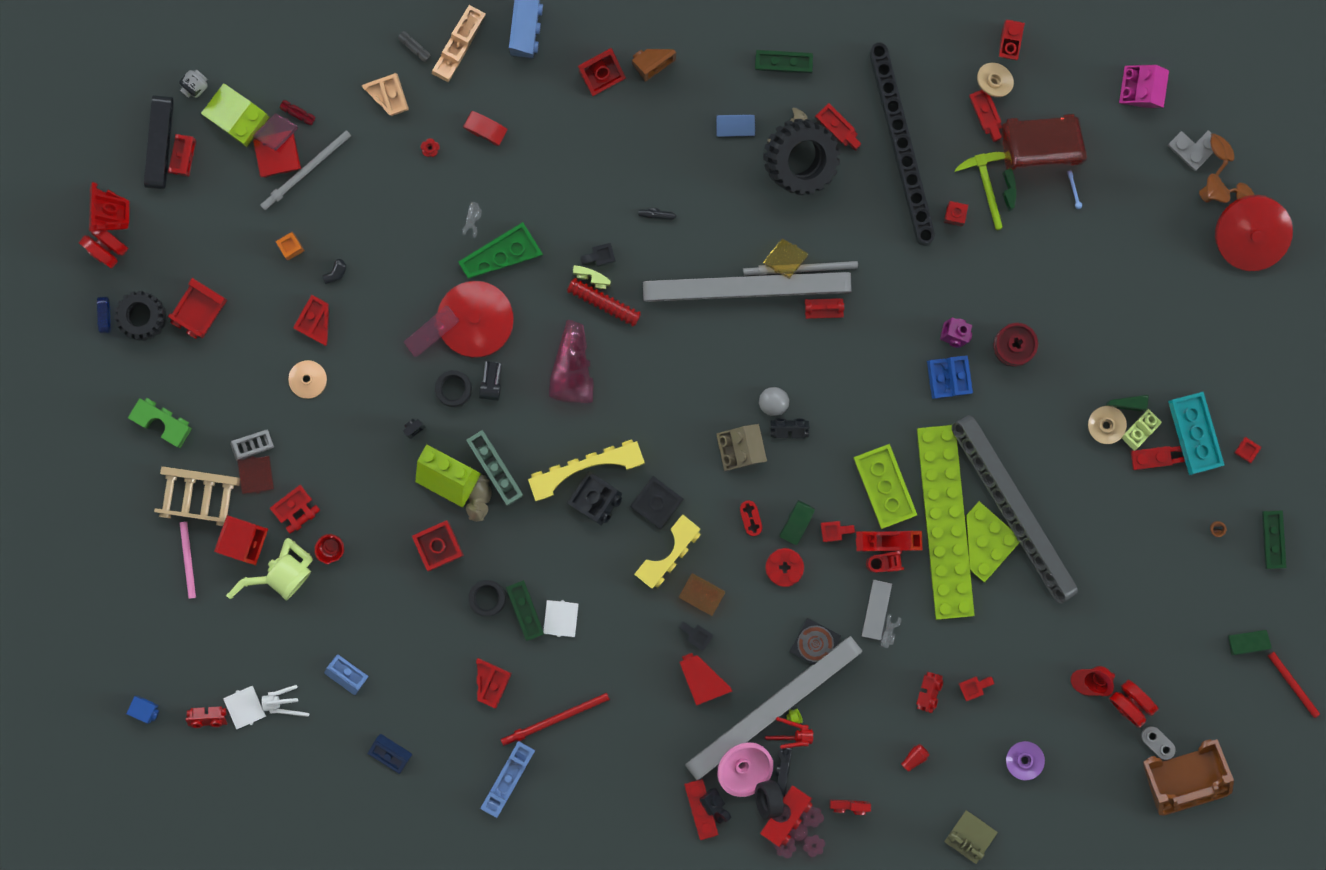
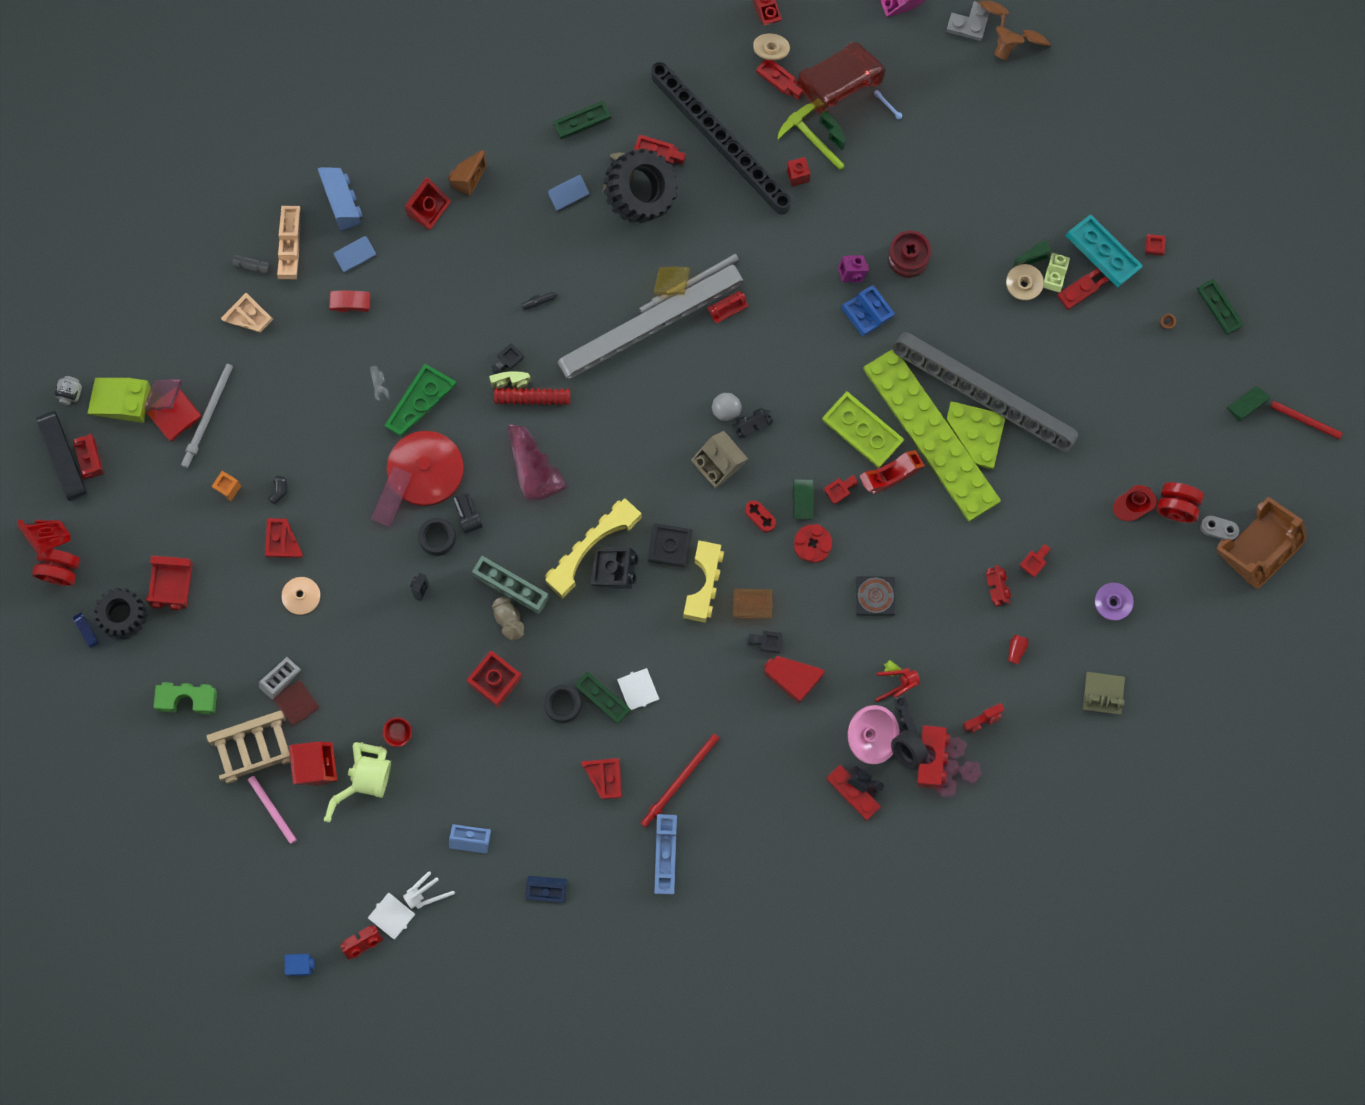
camera: 30 degrees left, 10 degrees down
(291, 504) = (342, 711): red plate -> none
(297, 112) = (174, 370): dark red axle -> none
(435, 147) = (311, 346): red plate -> none
(445, 475) = (469, 613): lime slope -> none
(512, 85) = (354, 254): none -> medium blue slope
(774, 707) = (869, 668): light grey beam -> none
(876, 609) = (913, 539): light grey tile -> none
(886, 562) = (901, 492): red piece -> none
(888, 636) = (935, 555): clear plate -> none
(1253, 232) = (1059, 63): red dish -> none

